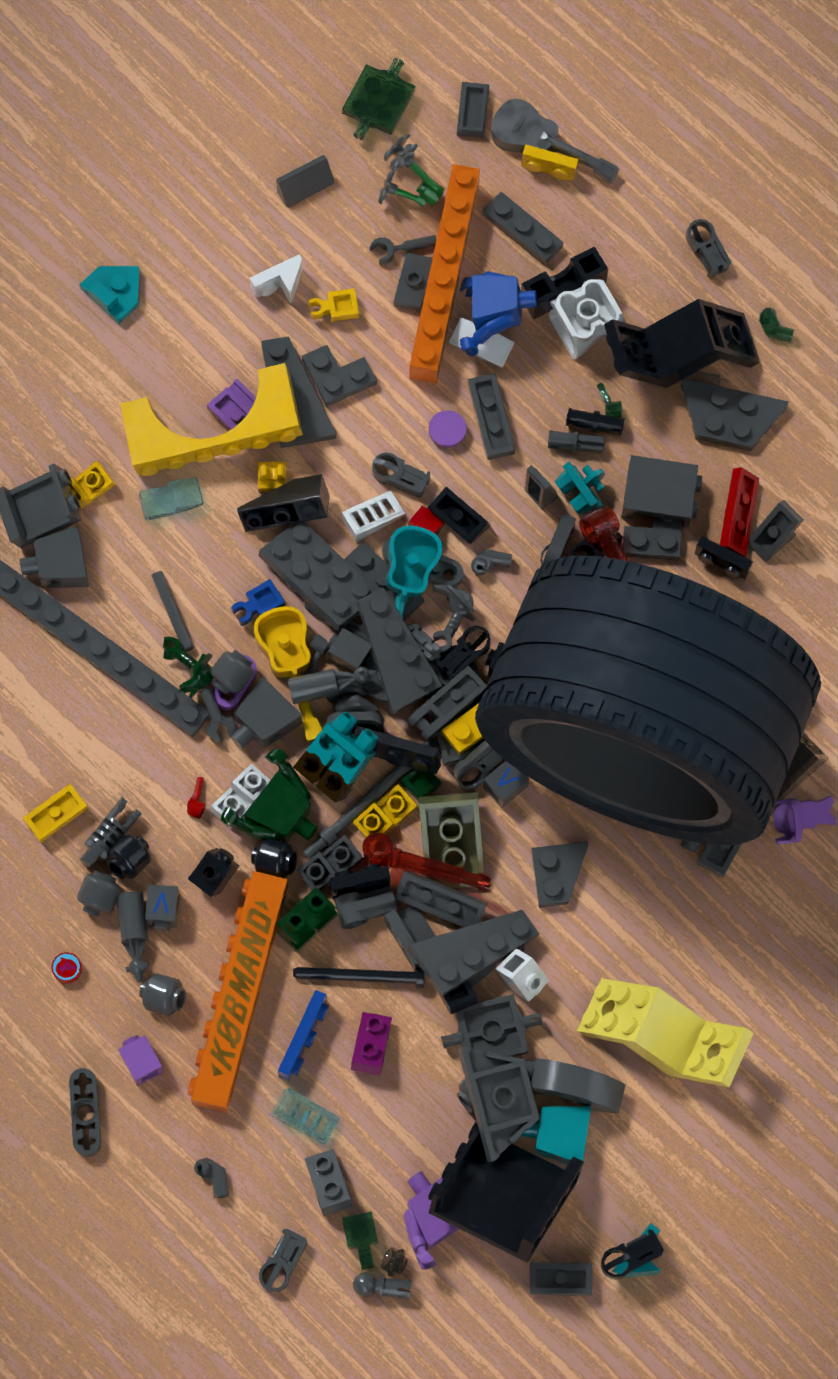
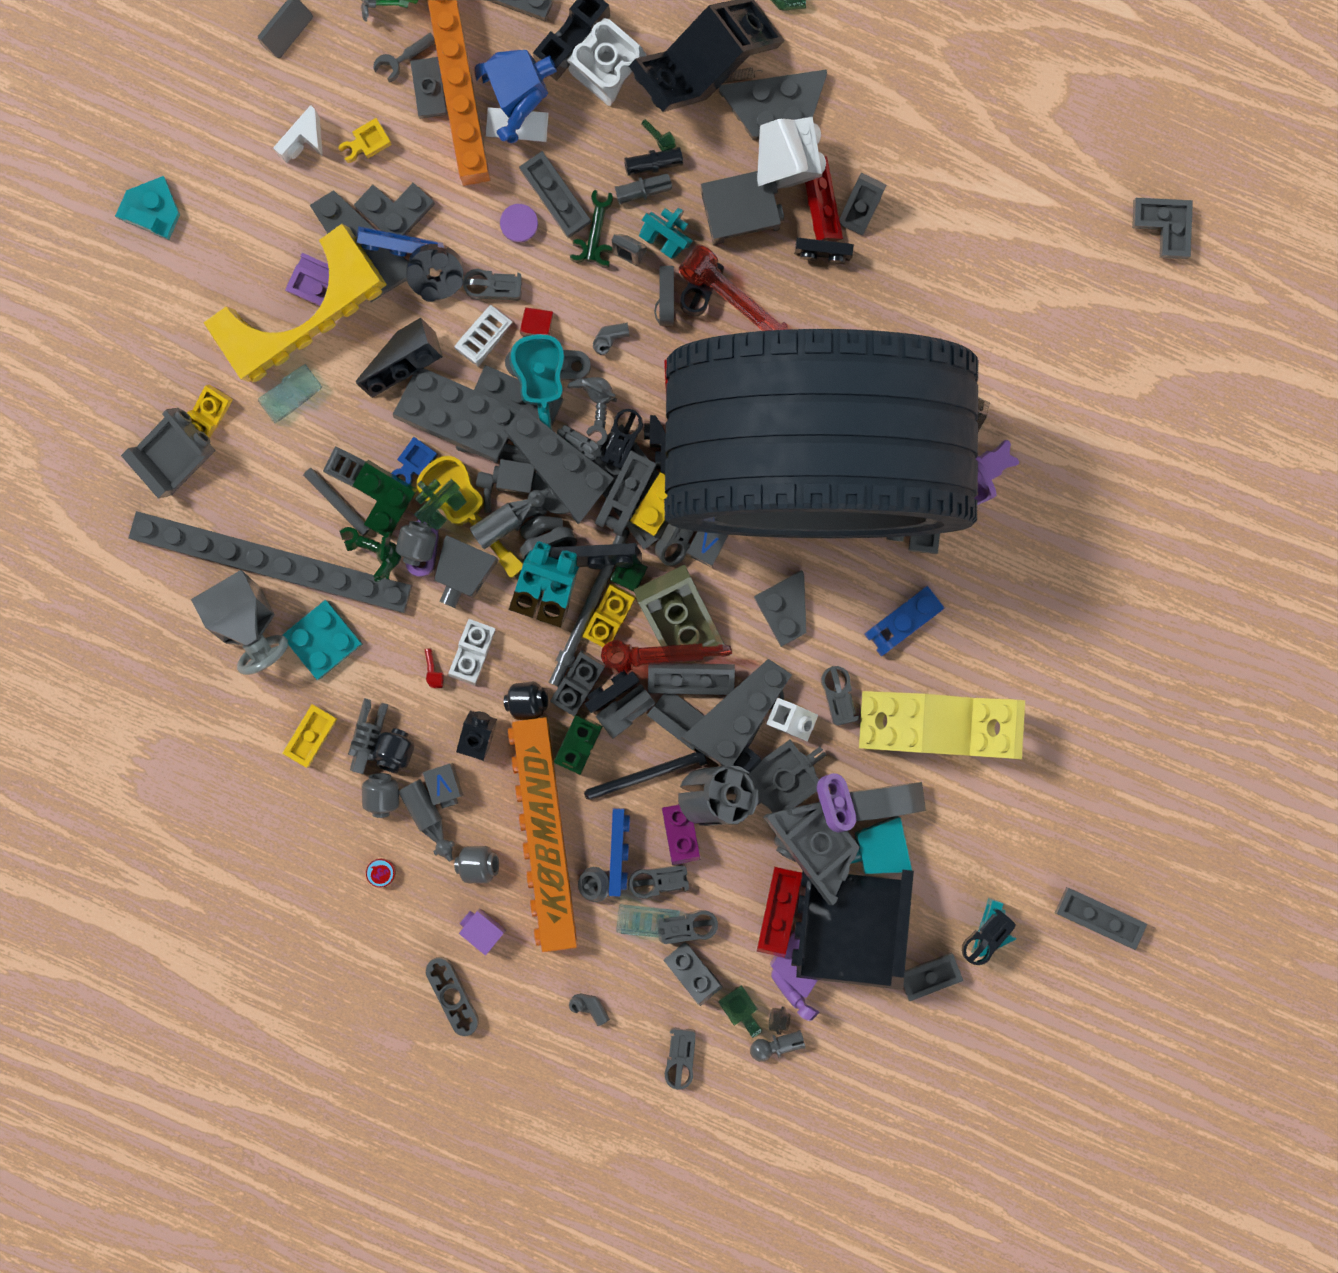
camera: 15 degrees left, 15 degrees up
(37, 674) = (238, 616): none -> dark grey piece
(58, 560) = (210, 496): dark grey torso -> none
(104, 730) = (322, 639): none -> teal plate
(194, 568) = (333, 461): none -> dark grey slope
(216, 716) = (418, 587): dark grey bar -> none
(226, 623) = (390, 493): none -> dark green plate
(256, 650) = (429, 511): none -> clear green hips
(267, 1058) = (594, 884): none -> dark grey hat
(271, 475) = (374, 334): yellow tile -> none
(279, 808) = (510, 652): dark green torso -> none
(329, 404) = (397, 243): none -> blue plate
(335, 1134) = (681, 929): none -> dark grey piece
(337, 1080) = (664, 880): none -> dark grey piece
(362, 429) = (439, 258): none -> black plate
(421, 1013) = (718, 796): none -> dark grey cylinder
(436, 1153) = (779, 912): none -> red plate
(458, 515) = (563, 304): black slope -> none
(506, 479) = (592, 251): none -> dark green bar
(533, 1064) = (836, 803): none -> medium lavender plate
(576, 978) = (839, 702): none -> dark grey piece
(658, 542) = (756, 257): dark grey plate -> none
(668, 927) = (905, 620): none -> blue plate
(723, 457) = (789, 152): none -> white piece
(752, 1288) = (1101, 918): none -> dark grey plate

